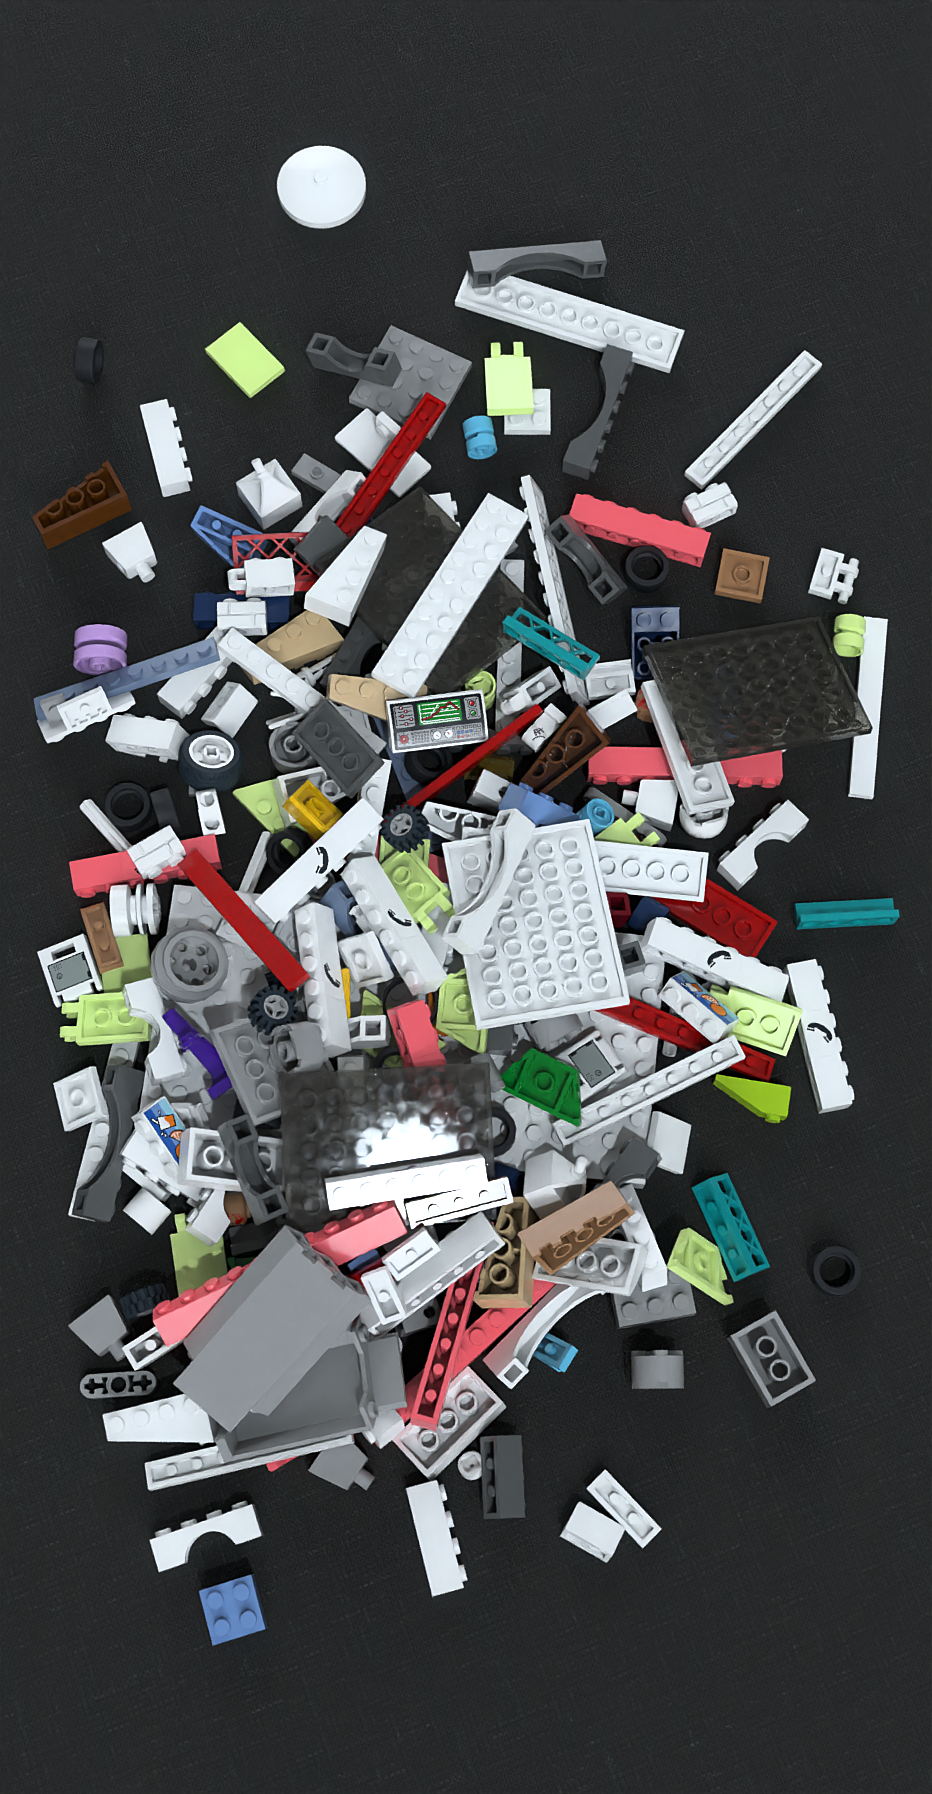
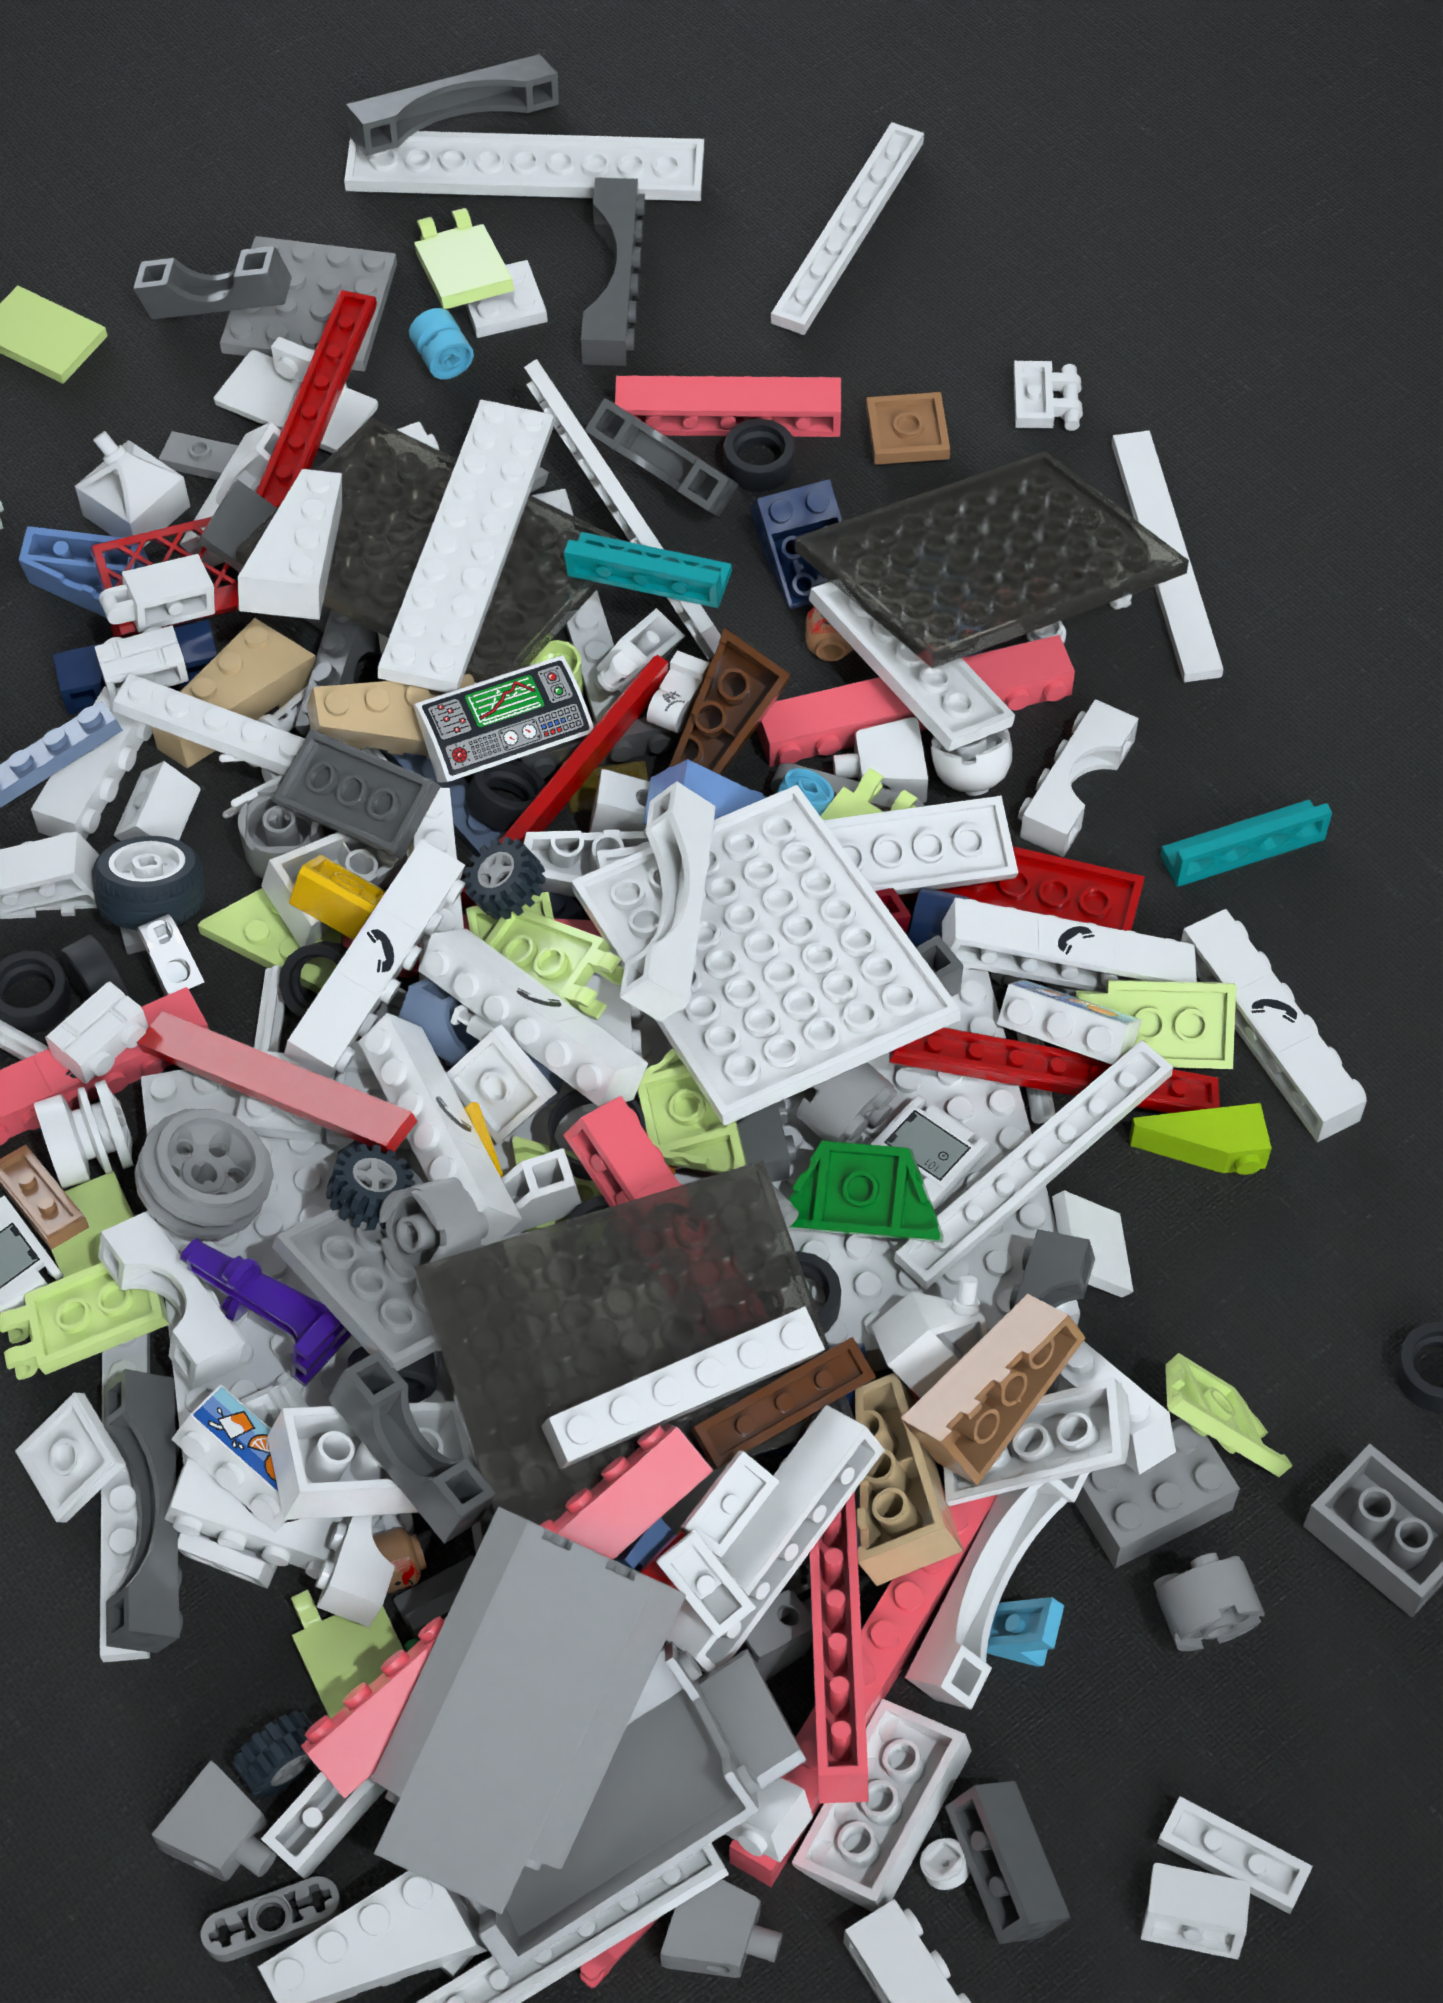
camera: 15 degrees left, 15 degrees down
(147, 1211) = (240, 1604): white piece -> none
(321, 187) = (93, 91): white dish -> none
(610, 679) = (757, 613): white plate -> none
(613, 709) = (782, 640): white panel -> none
(709, 505) = (826, 347): white brick -> none
(727, 1228) = (1242, 1349): teal fence -> none
(848, 636) = (1101, 460): yellowish green wheel -> none

